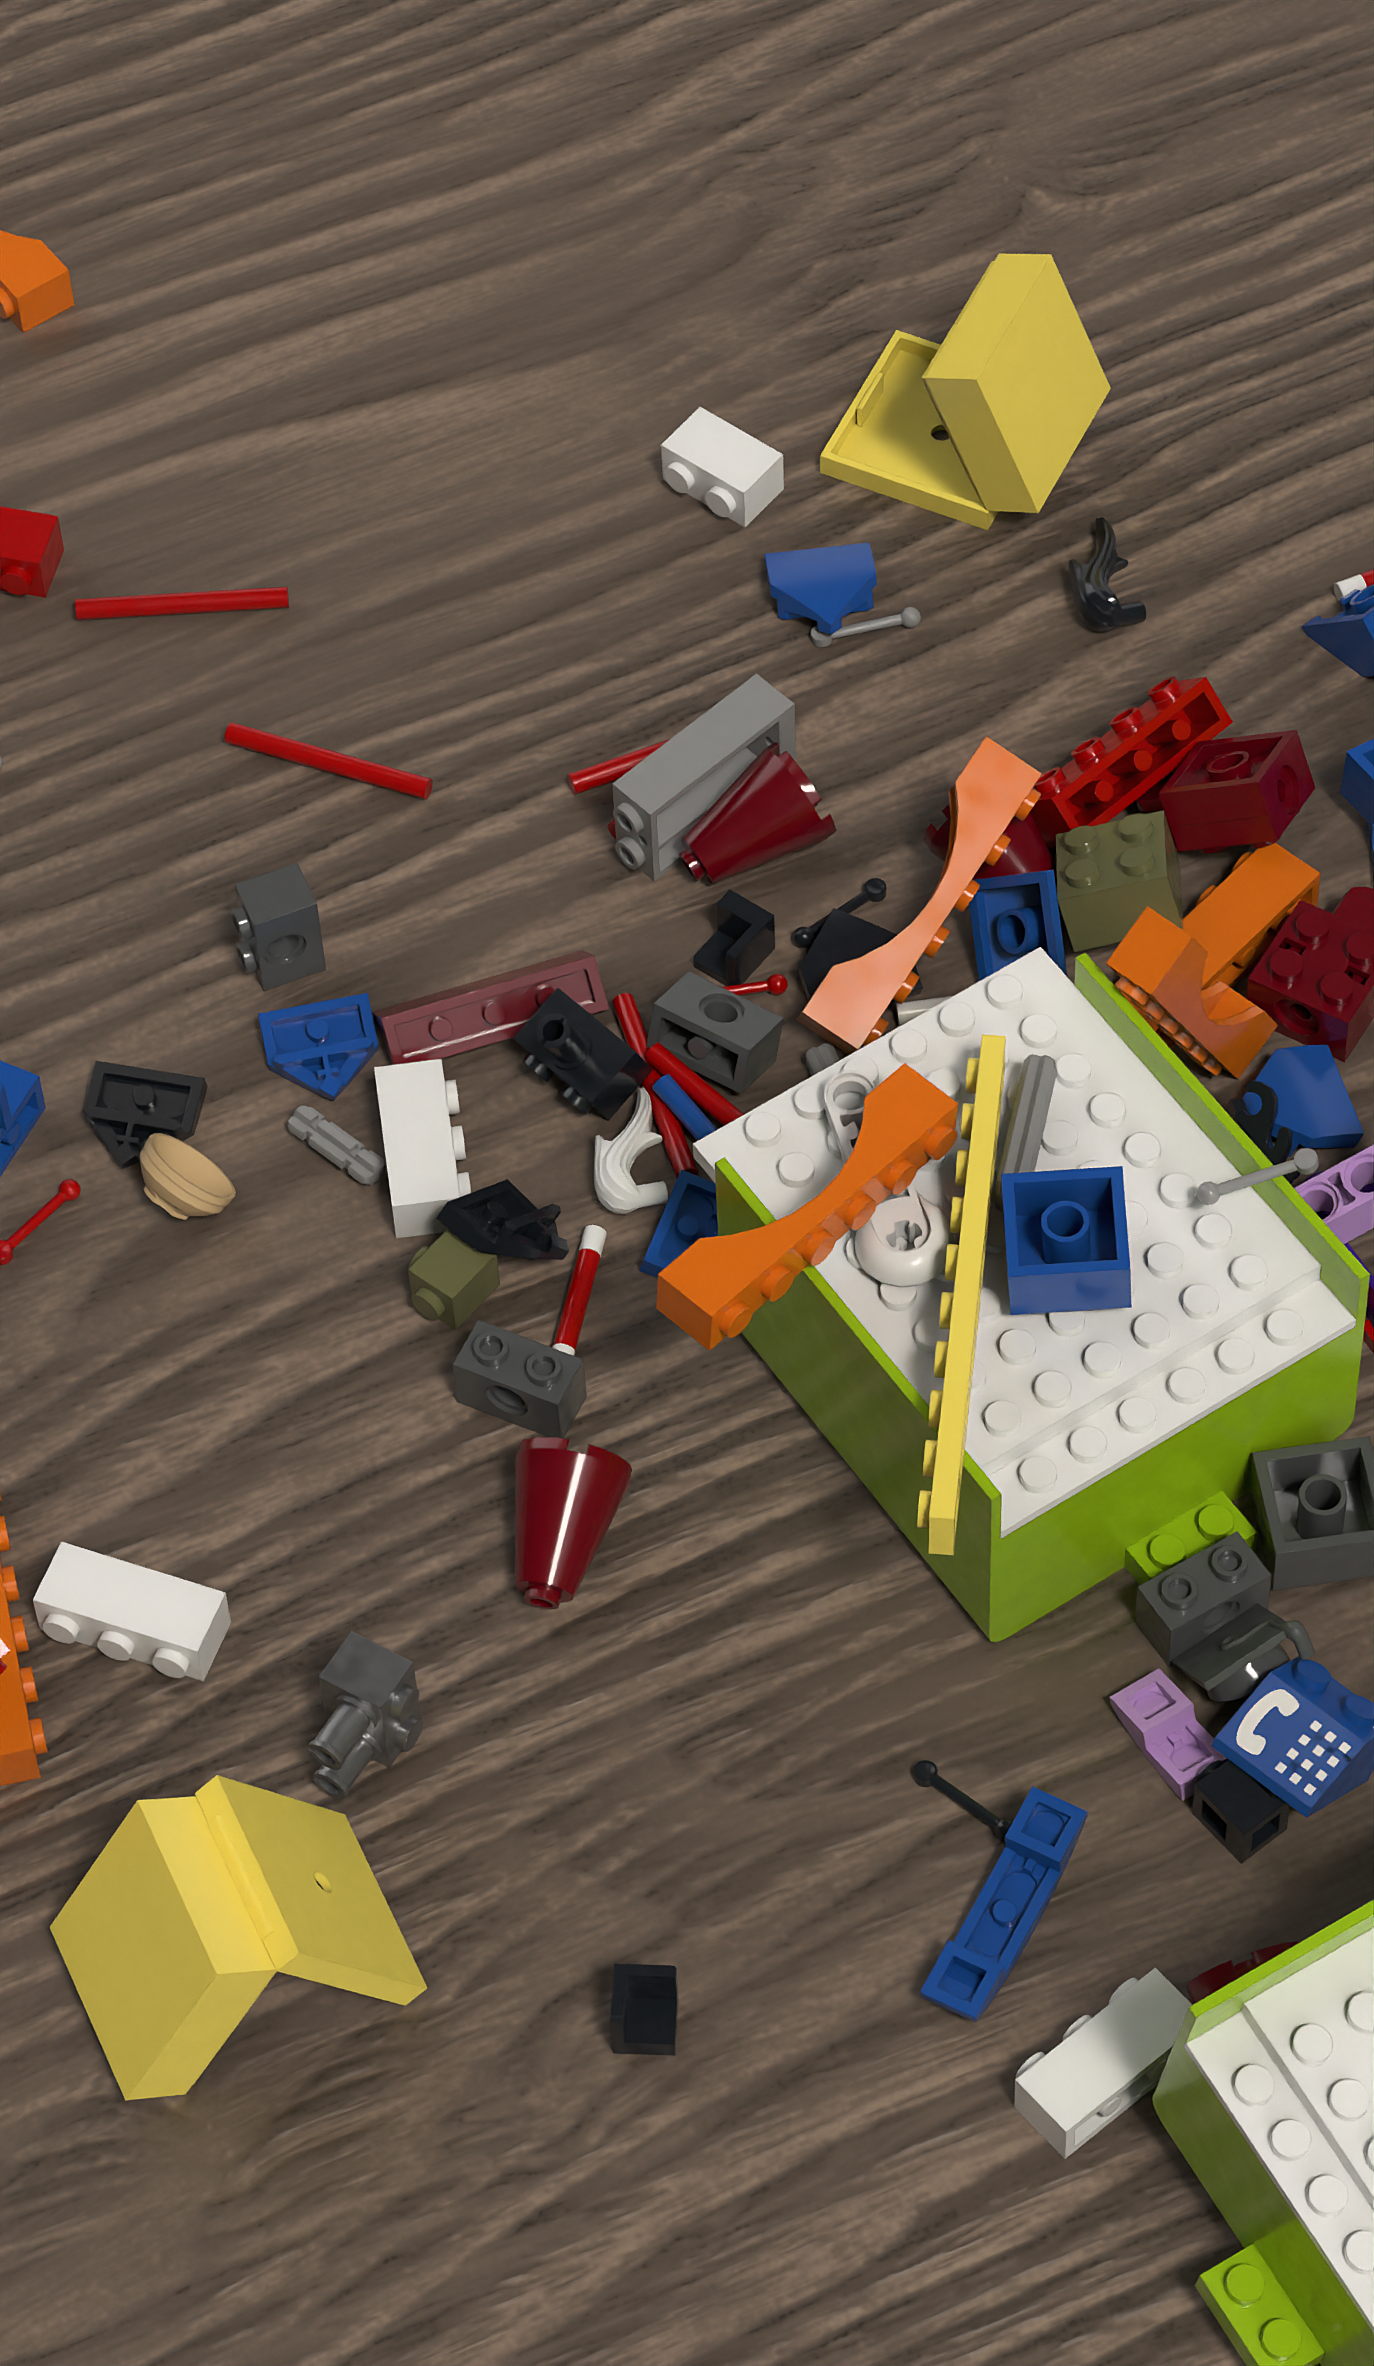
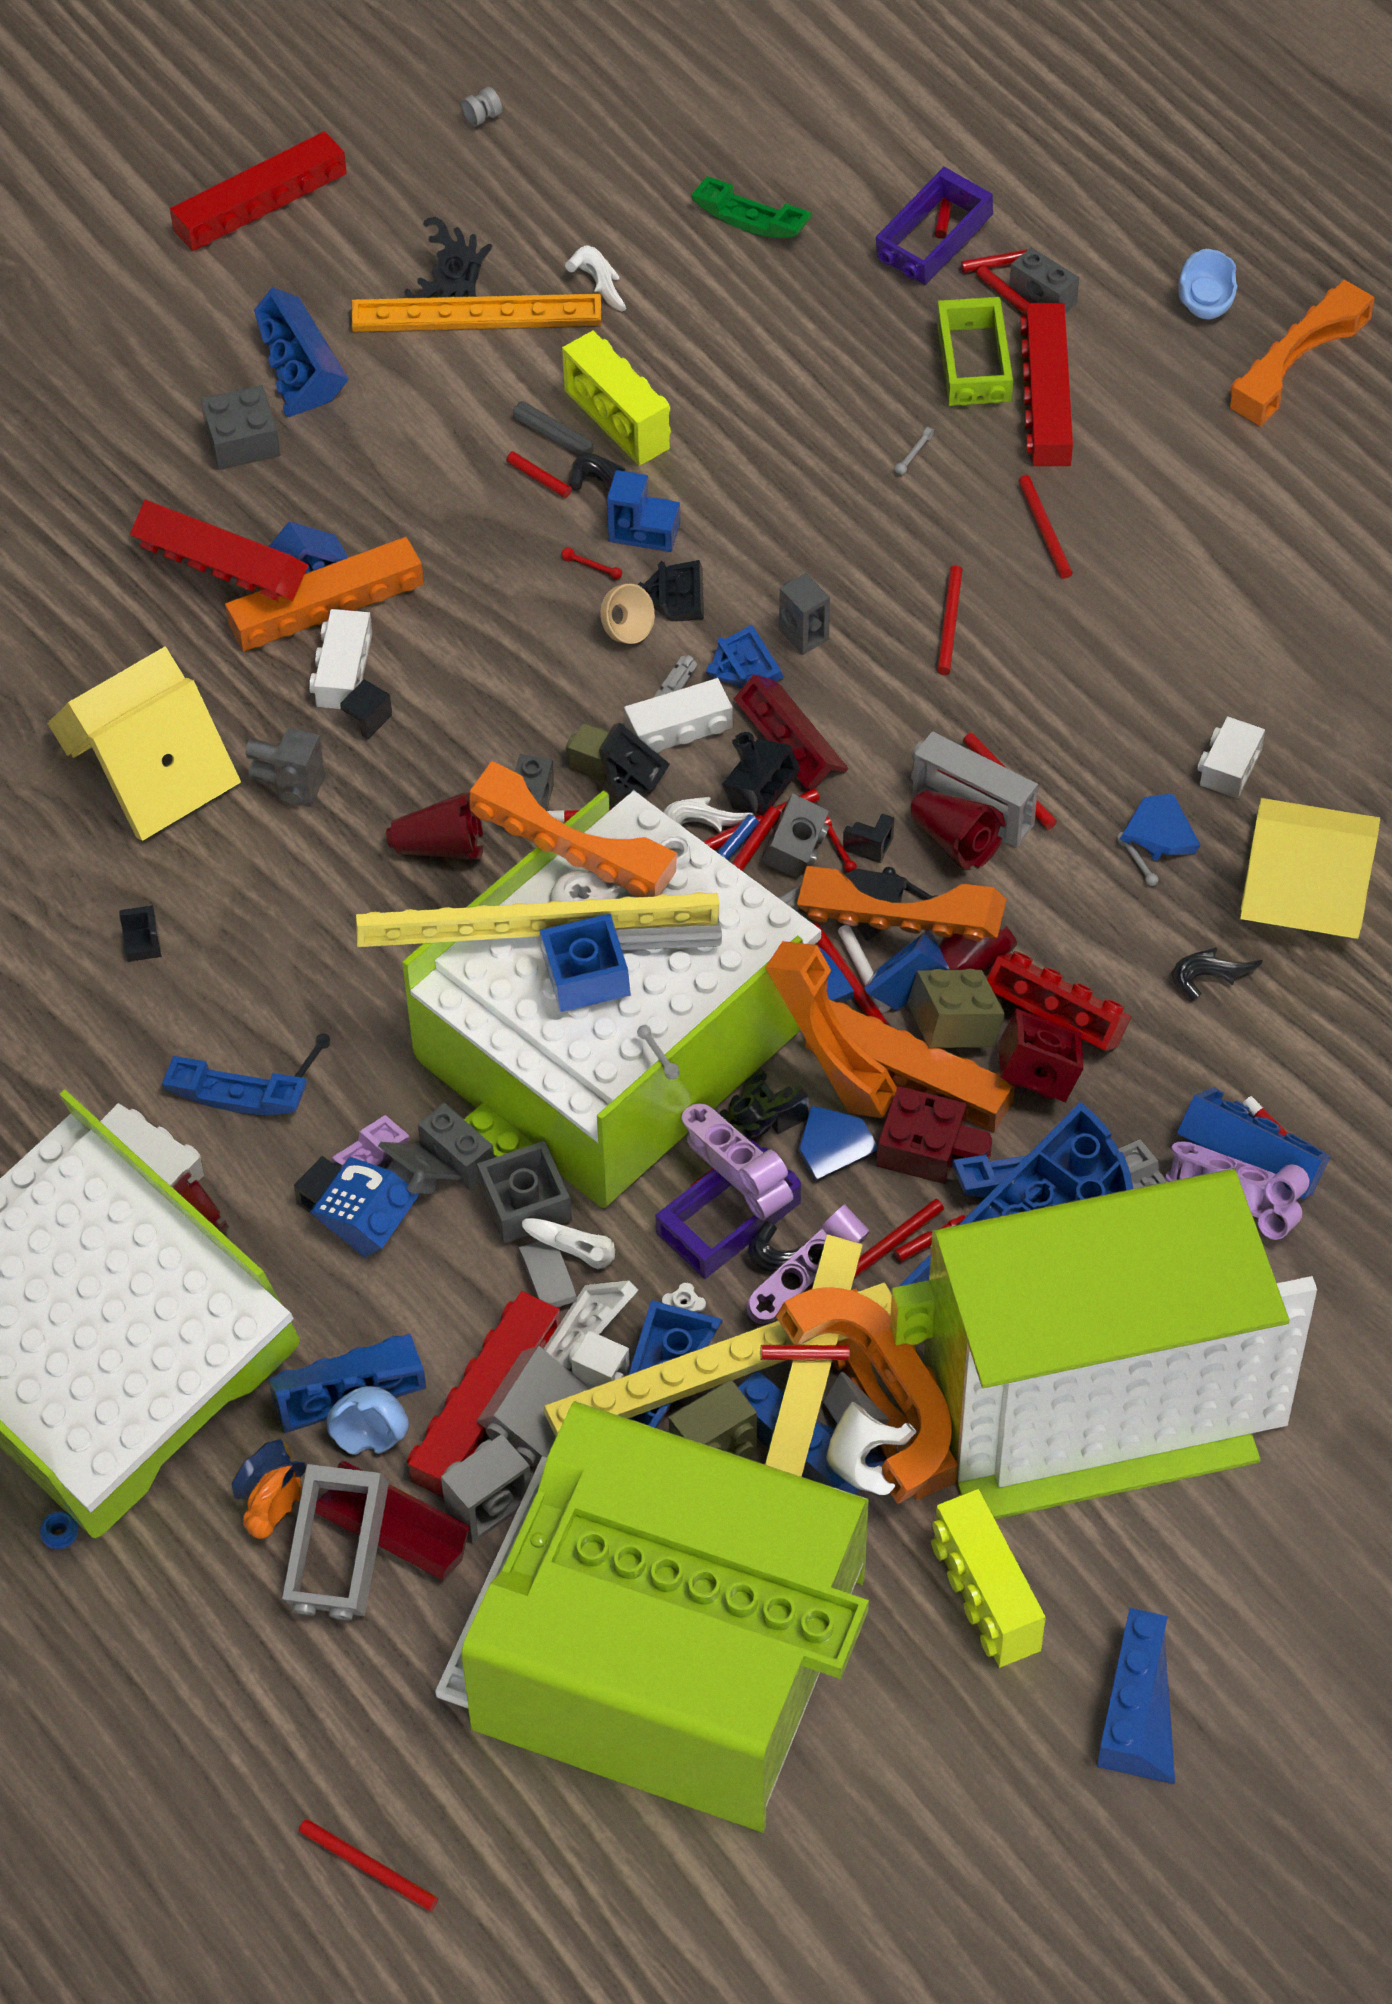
camera: 75 degrees right, 0 degrees up
(255, 1584) = (369, 706): none -> black panel

